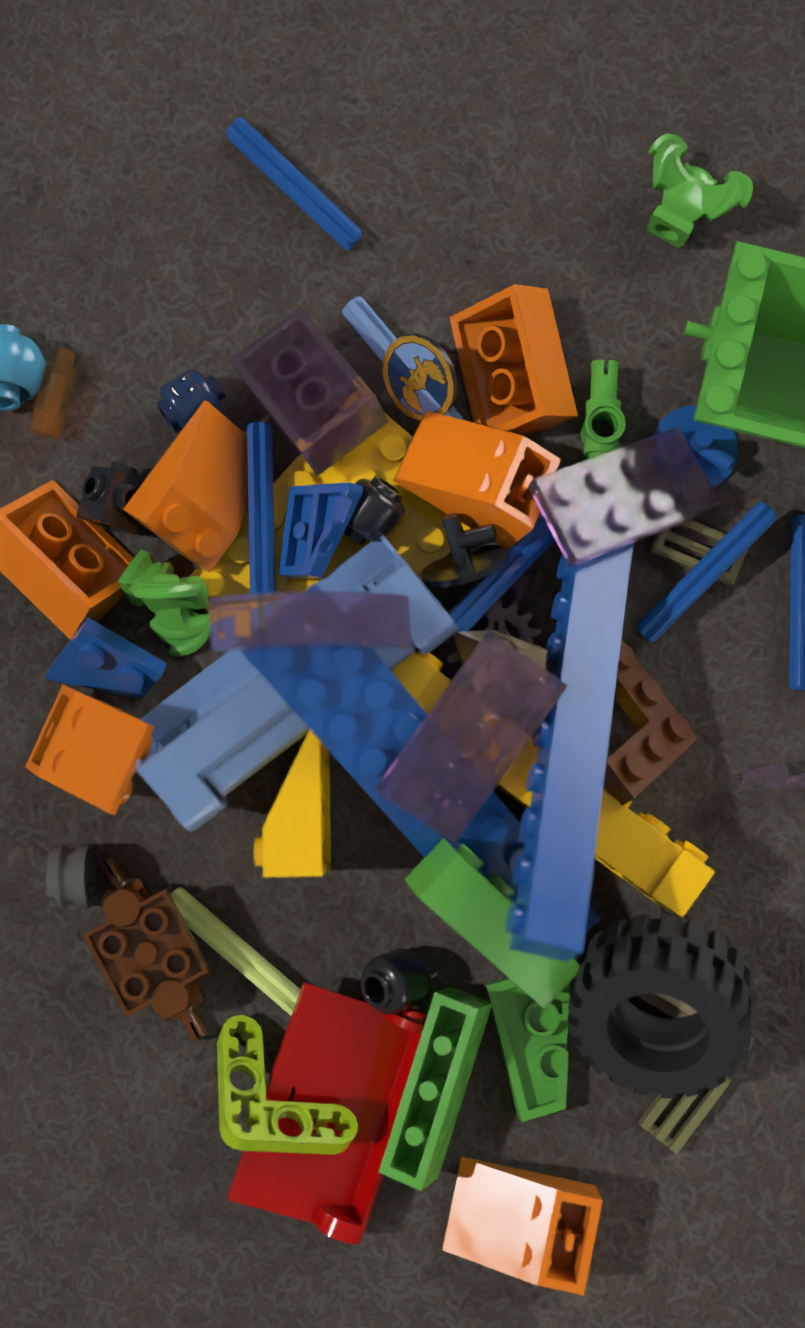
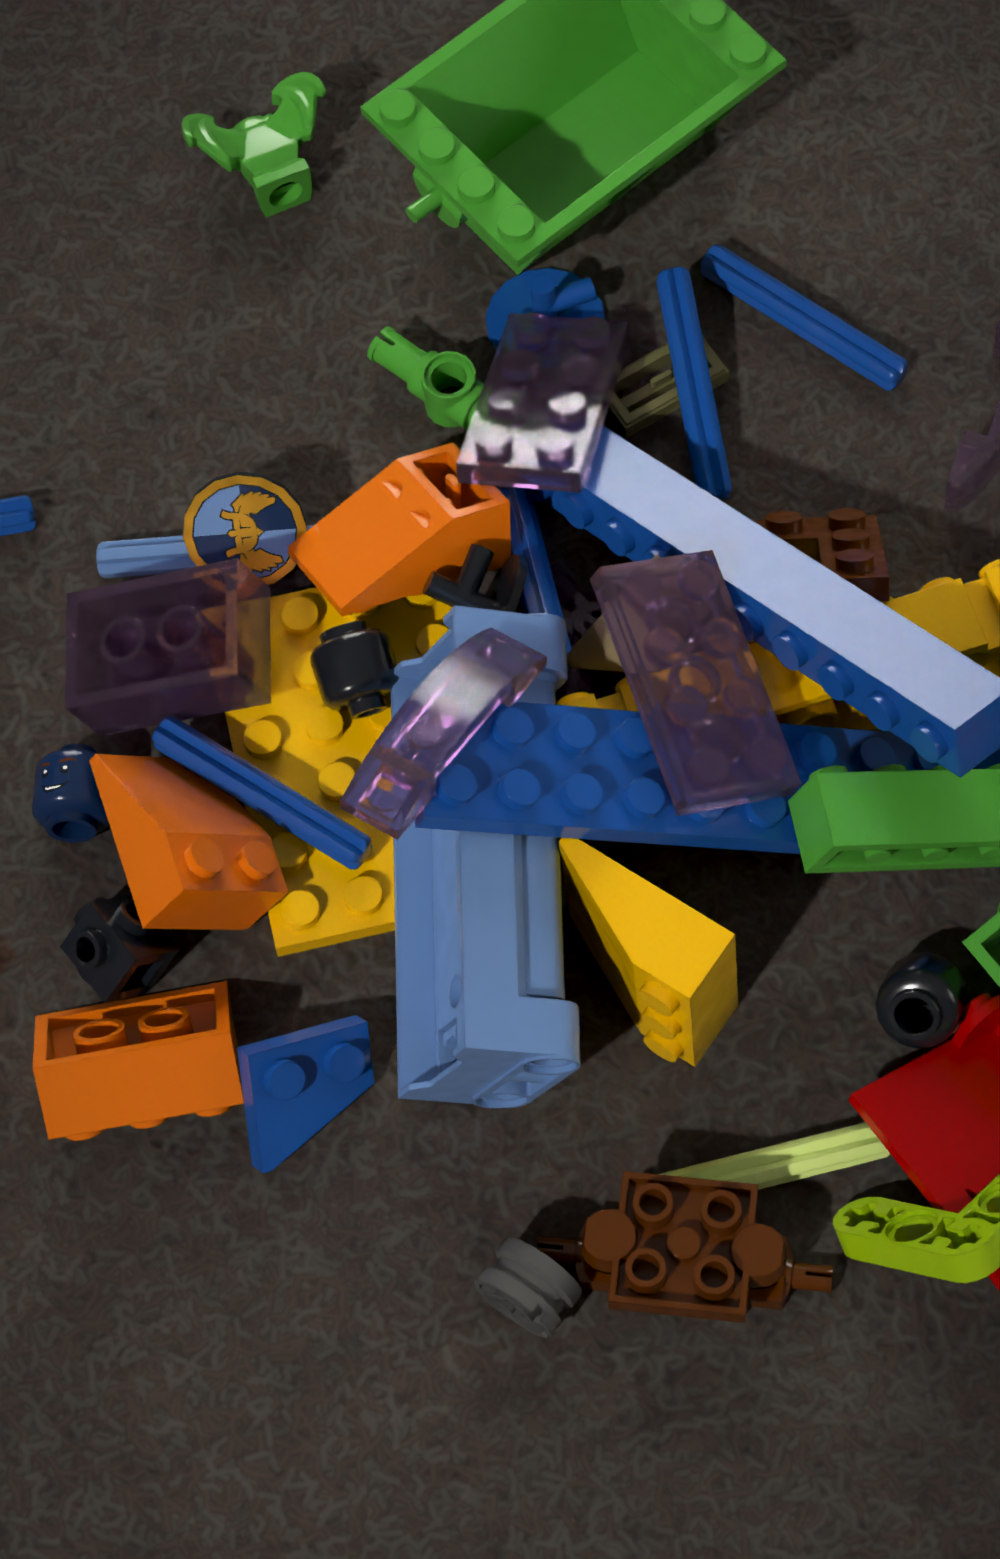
camera: 45 degrees left, 20 degrees down
(90, 749) = (393, 1142): orange slope -> none
(170, 600) = (279, 964): bright green animal -> none
(315, 526) = (321, 727): blue wing -> none
(514, 361) = (302, 427): orange slope -> none

